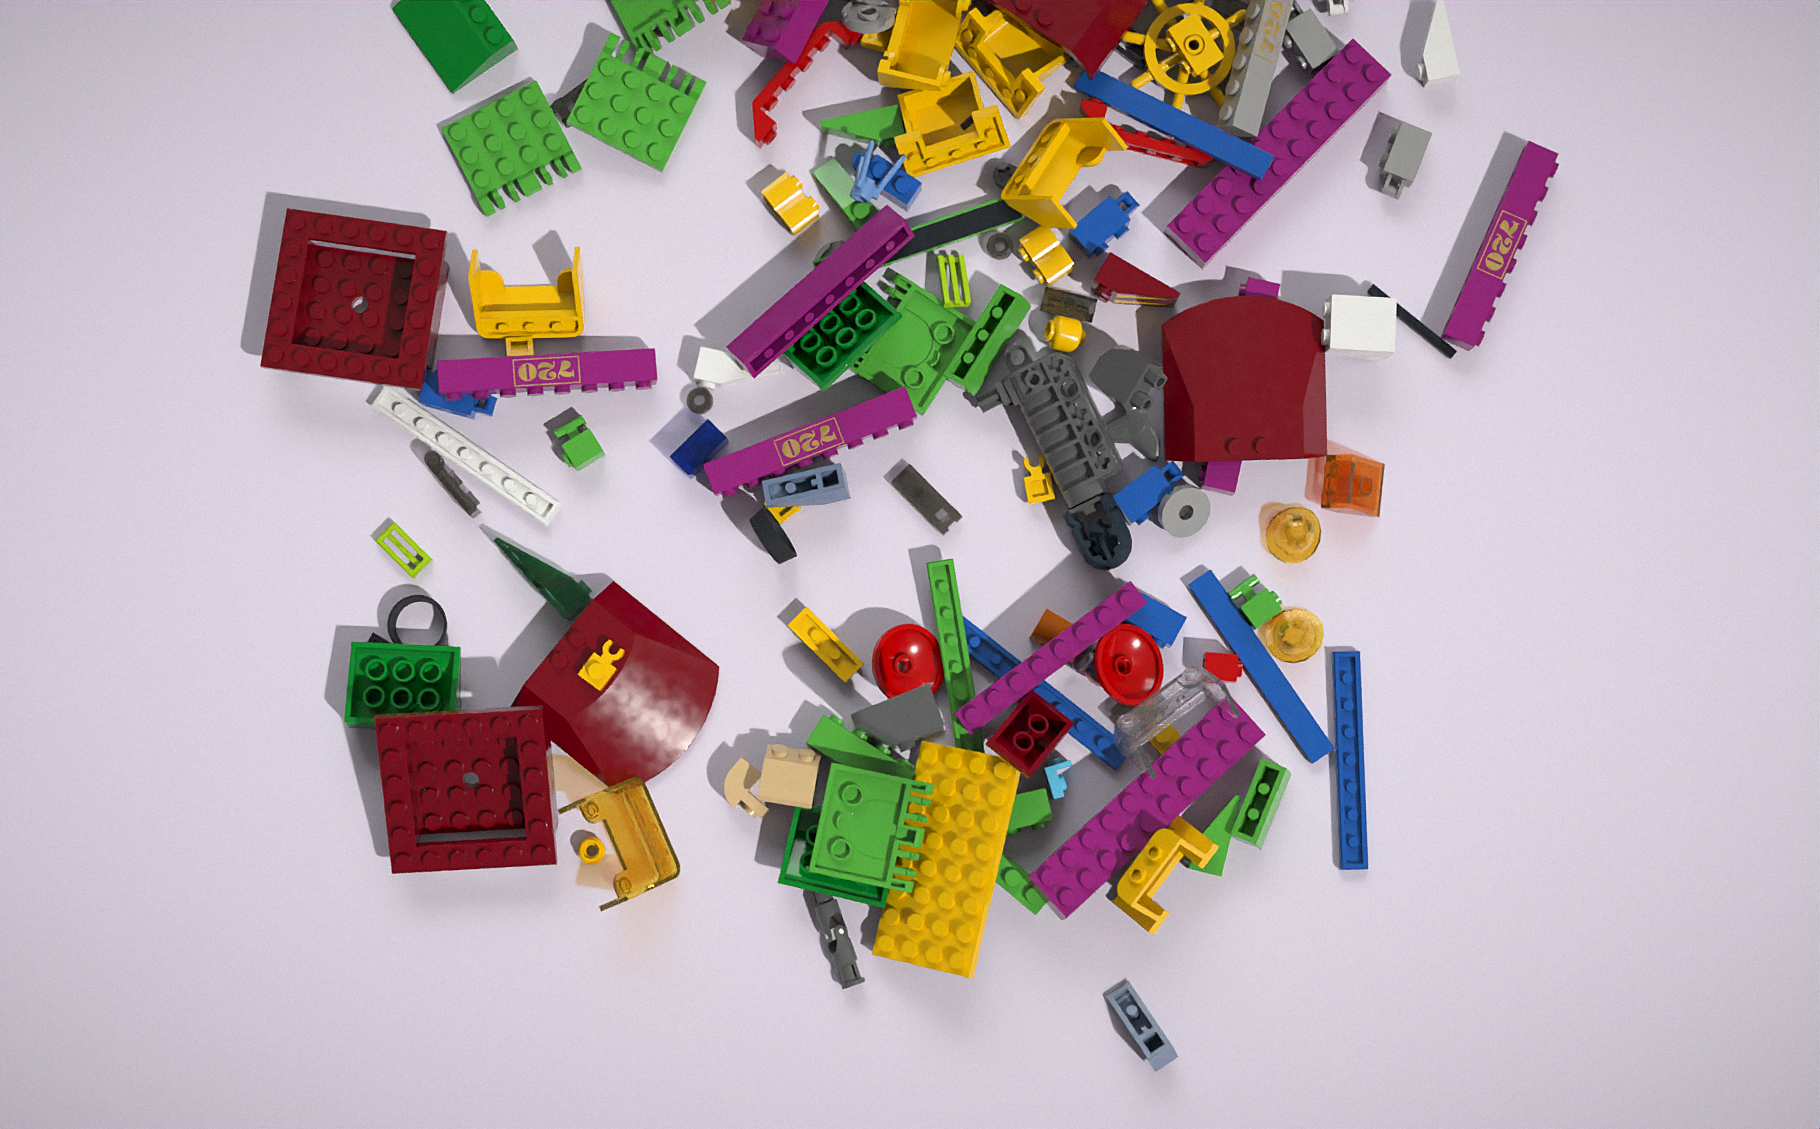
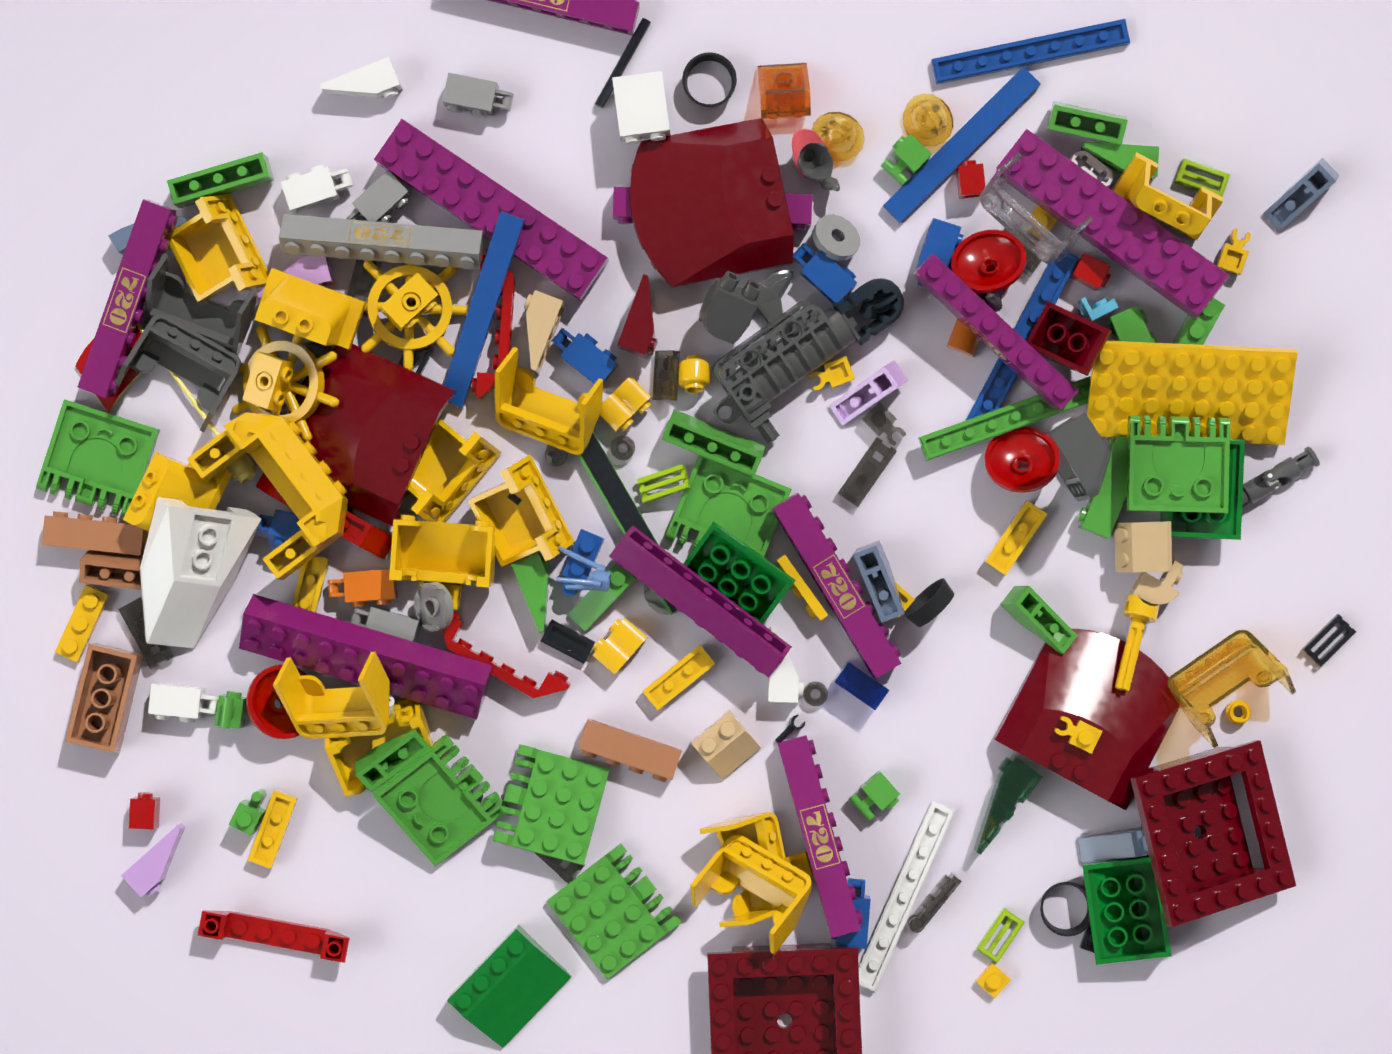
camera: 100 degrees left, 5 degrees up
(357, 533) = (993, 980): none -> yellow plate
(475, 681) = (1113, 845): none -> sand blue slope
(533, 292) = (761, 873): none -> yellow windscreen
(662, 984) = (1343, 626): none -> black tile
(664, 295) = (725, 744): none -> tan slope
(667, 367) = (789, 729): none -> black hand
(678, 195) = (630, 749): none -> nougat brick
(716, 761) = (1139, 614): none -> yellow piece
(734, 652) = (1038, 618): none -> bright green slope
(745, 260) = (678, 677): none -> yellow plate
(805, 152) = (568, 641): none -> black tile
(814, 405) = (800, 589): none -> yellow plate
(977, 523) = (881, 421): none -> clear smoke plate
(1011, 516) = (868, 392): none -> lavender slope
(1087, 938) = (1233, 256): none -> yellow plate
(1097, 779) = (1091, 272): none -> red brick
(1145, 181) = (542, 322): none -> tan slope
(1167, 942) = (1182, 172): none -> lime tile
(1213, 806) = (1095, 165): none -> white beam
(1274, 500) = (813, 158): none -> dark grey hair
(1395, 390) = (709, 56): none -> black tyre

